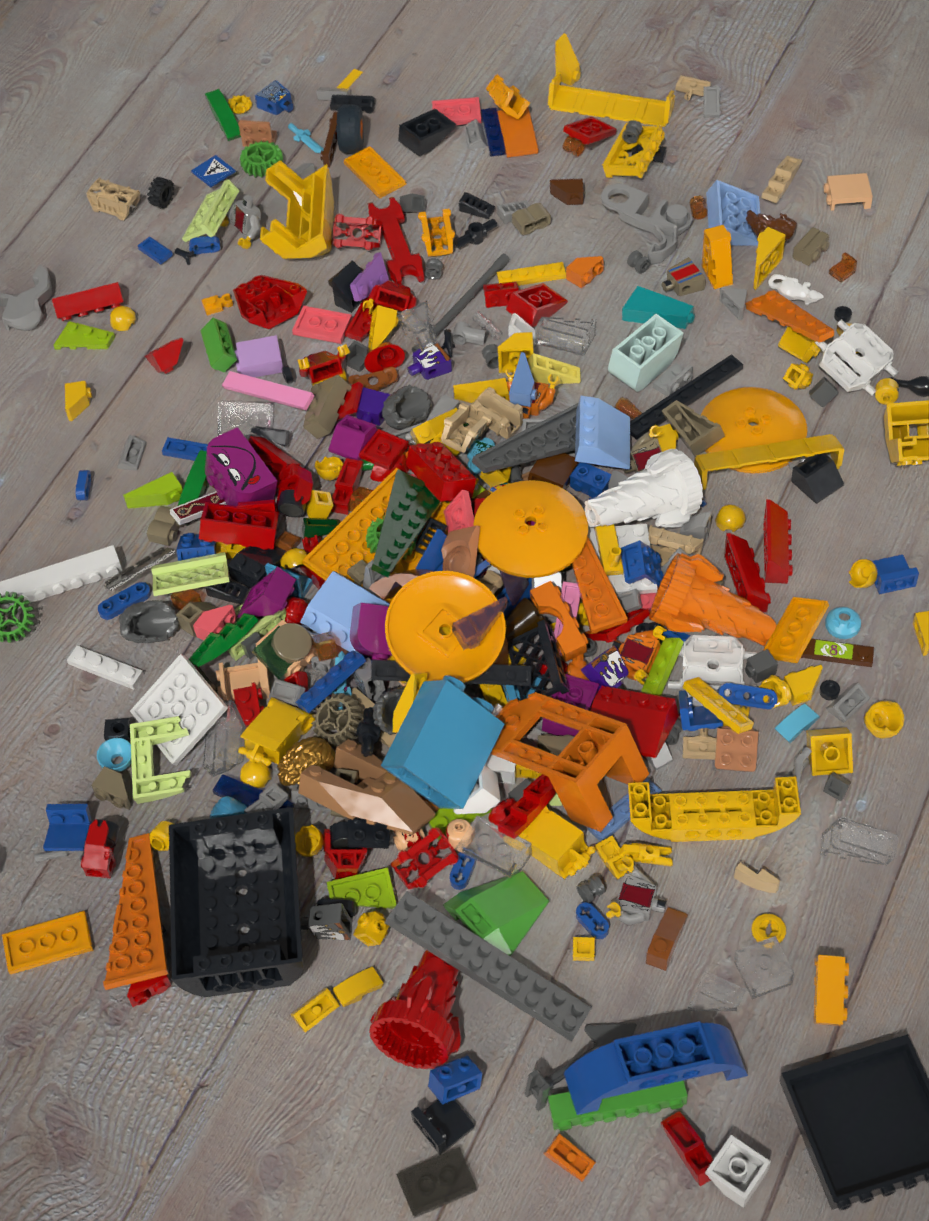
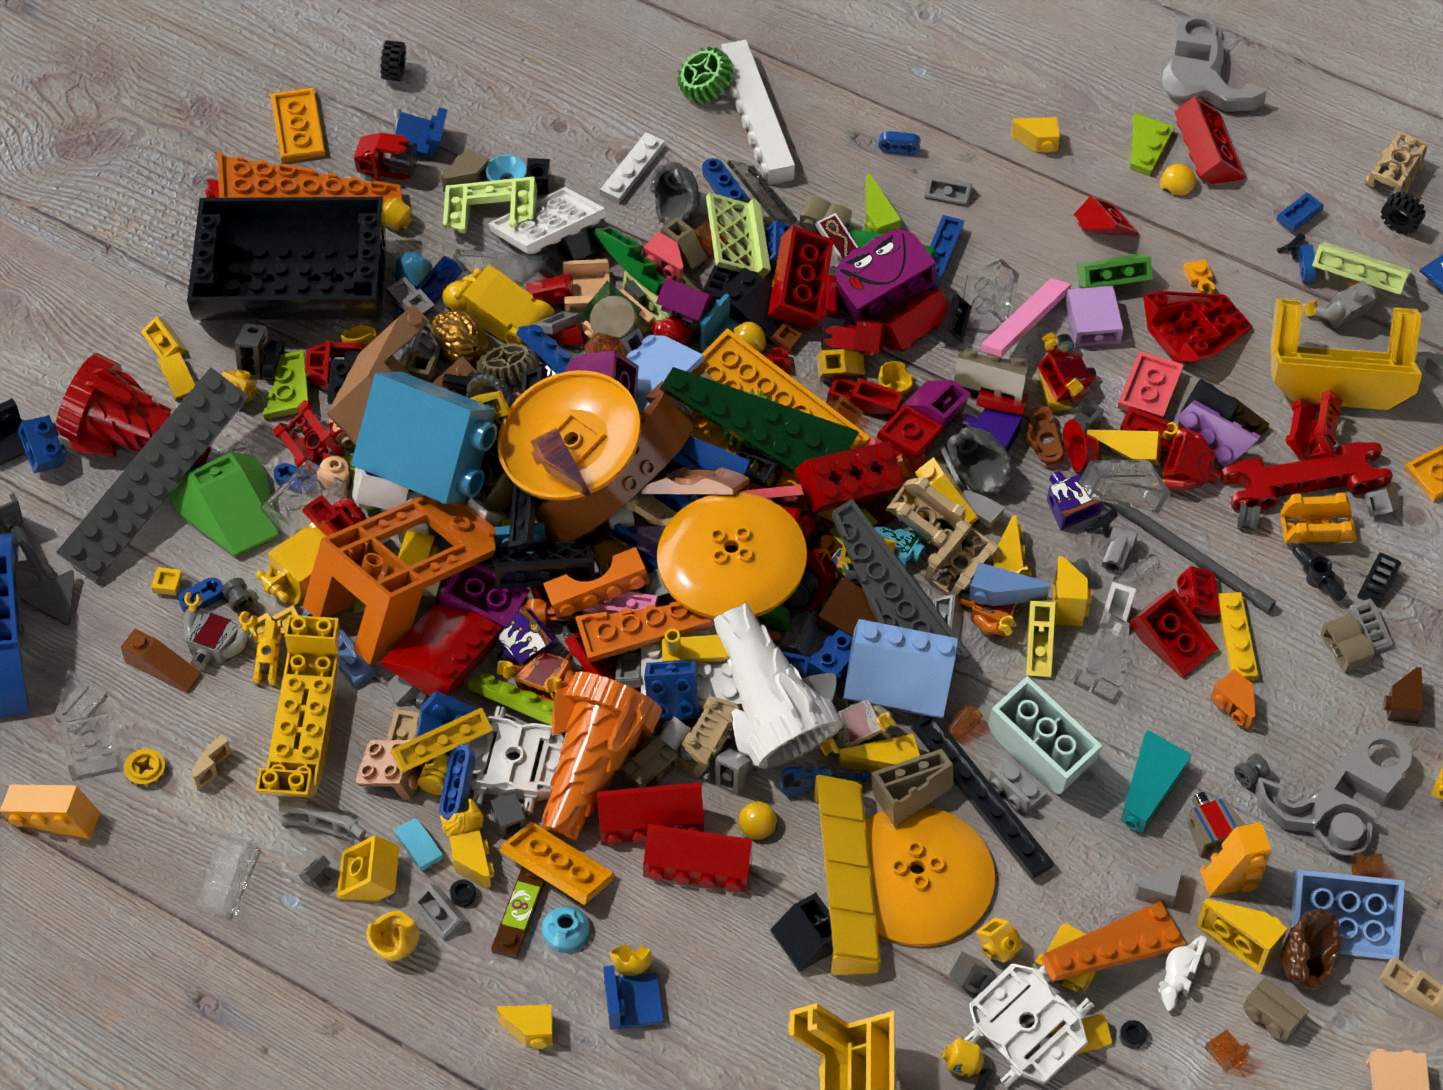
camera: 90 degrees right, 0 degrees up
(318, 526) = (809, 357): dark green slope -> none

